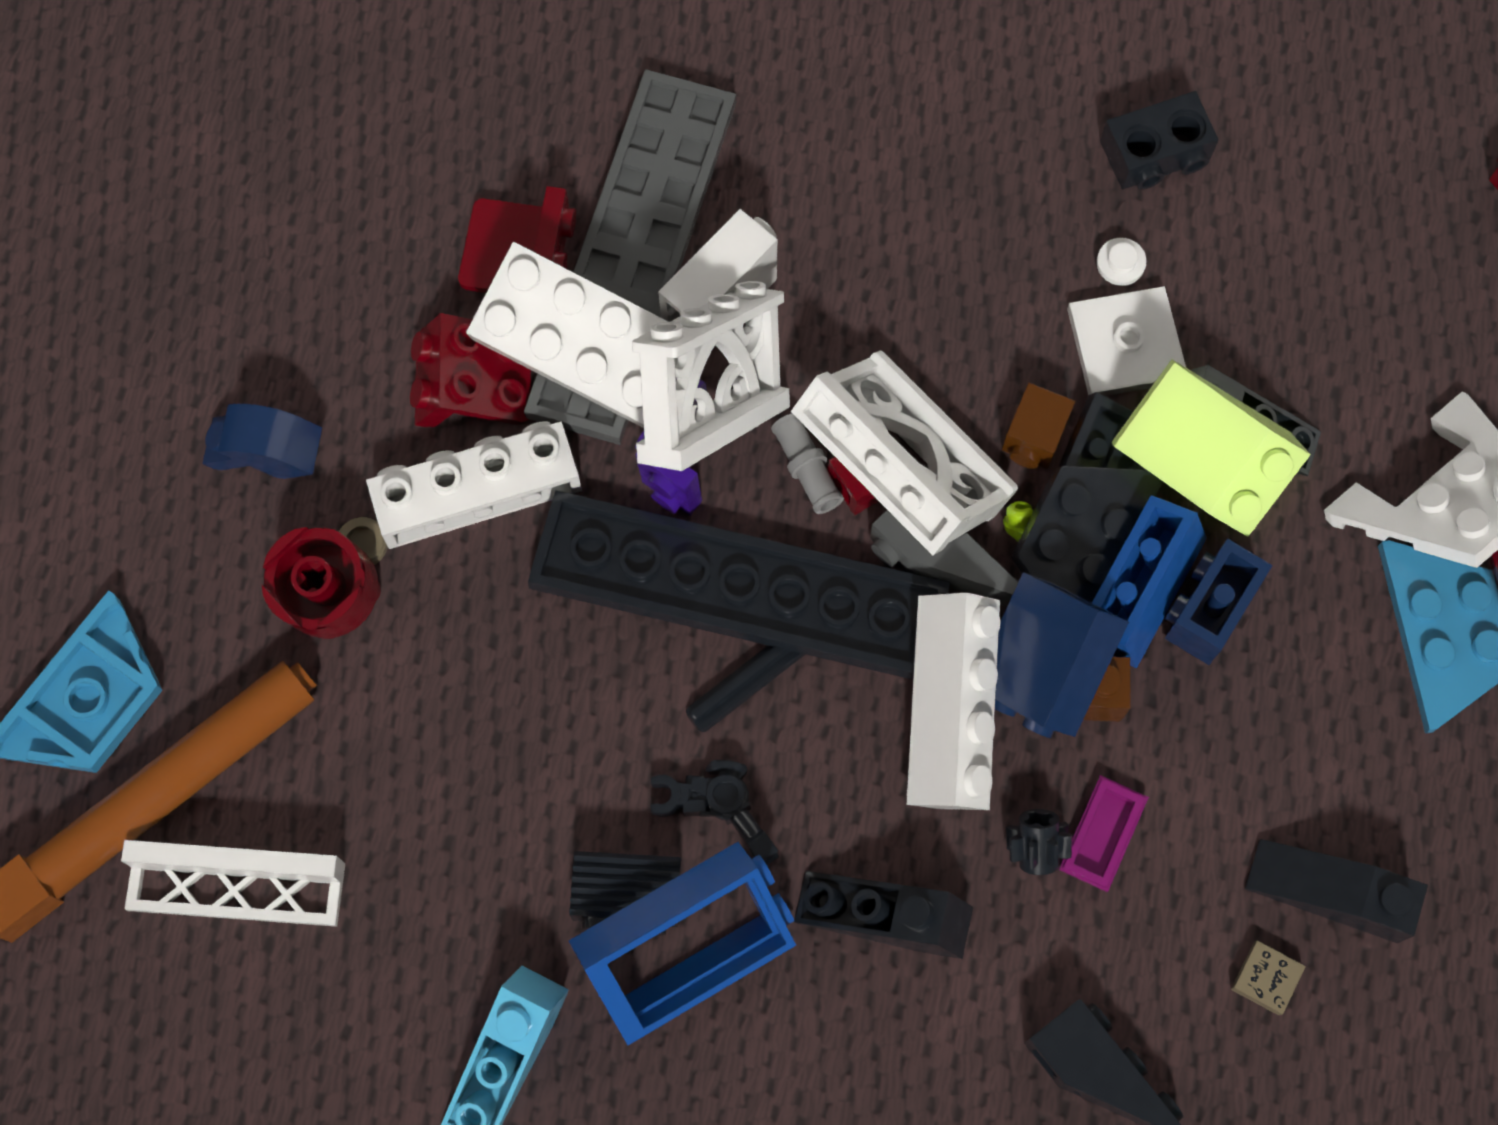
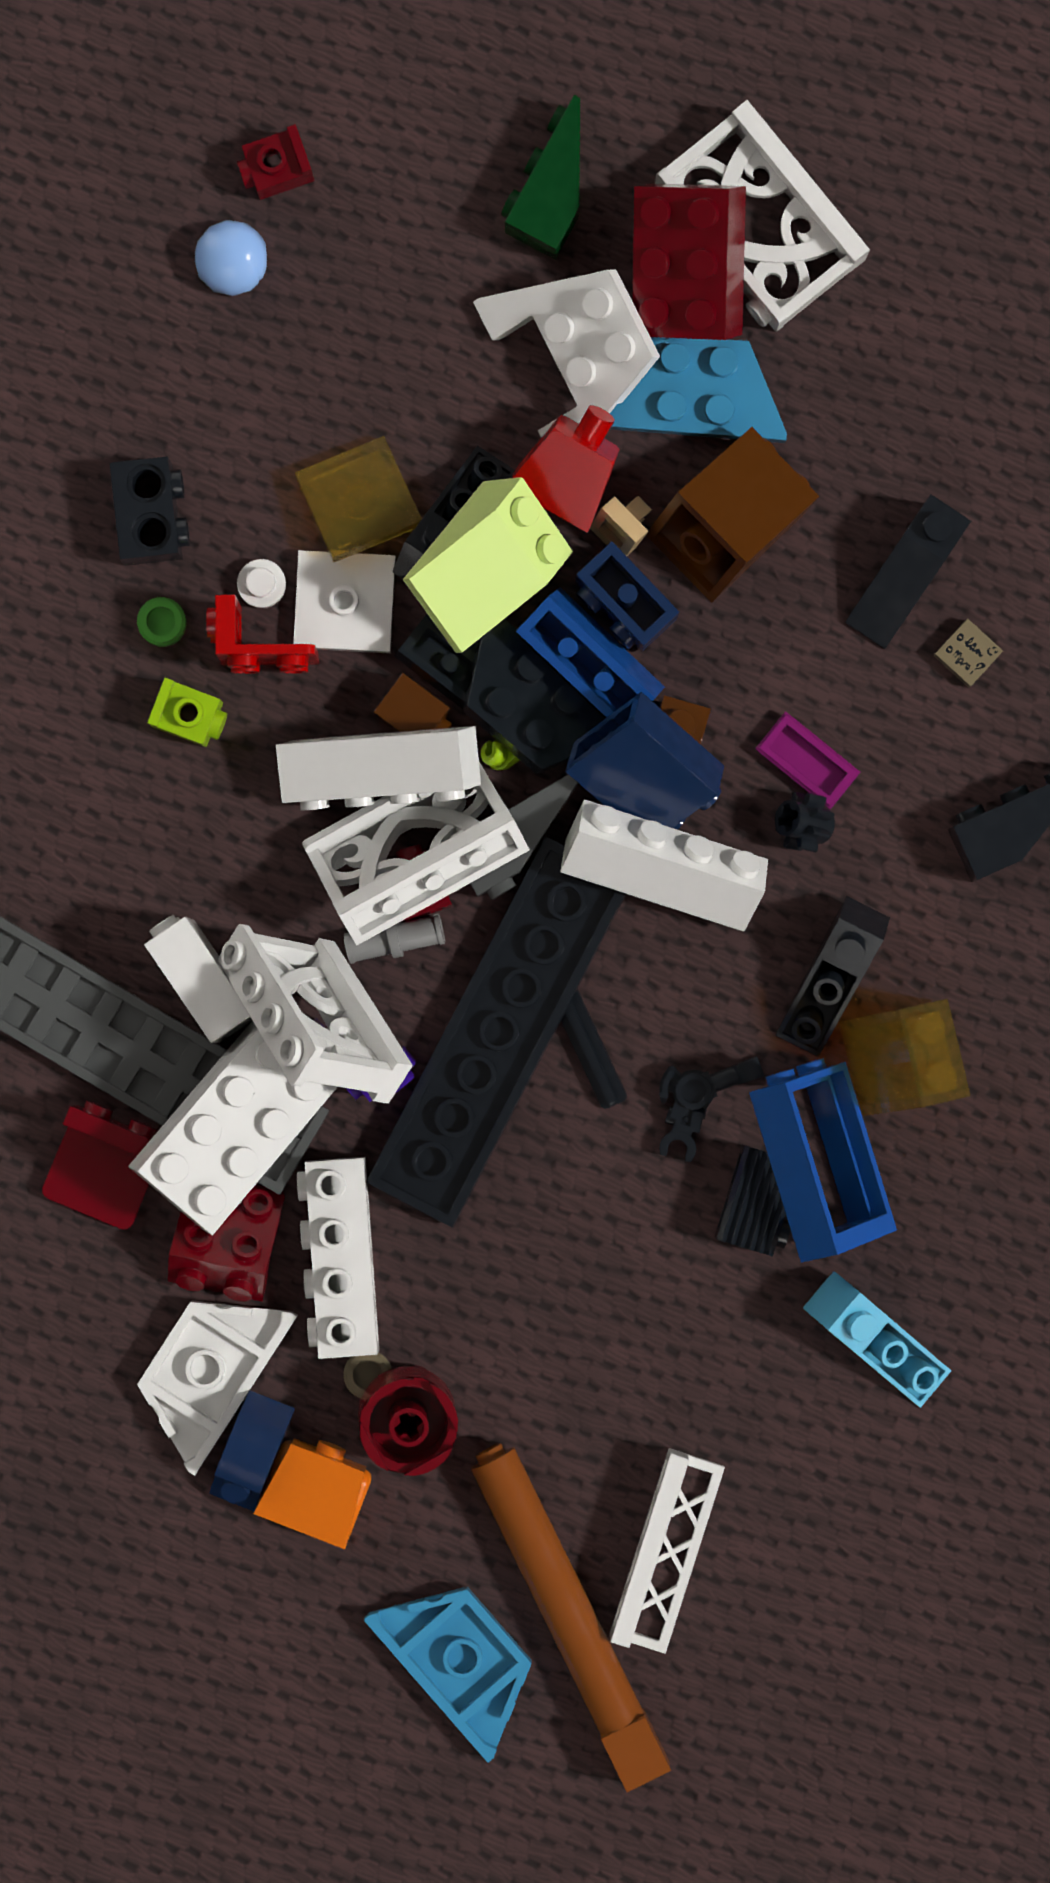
camera: 80 degrees left, 15 degrees up
(231, 514) = (315, 1491): none -> orange torso
(338, 385) = (209, 1370): none -> white wing
(818, 1006) = (905, 1058): none -> clear yellow slope
(978, 202) = (167, 709): none -> lime brick
(978, 397) = (379, 765): none -> white brick
(1056, 183) = (161, 622): none -> bright green tile
(1063, 233) = (225, 630): none -> red bracket
(1232, 326) = (358, 499): none -> clear yellow tile
(1289, 584) = (621, 523): none -> tan tile
(1332, 515) = (572, 466): none -> red torso
(1338, 688) = (731, 513): none -> reddish brown slope
(1426, 162) = (231, 257): none -> light blue hair

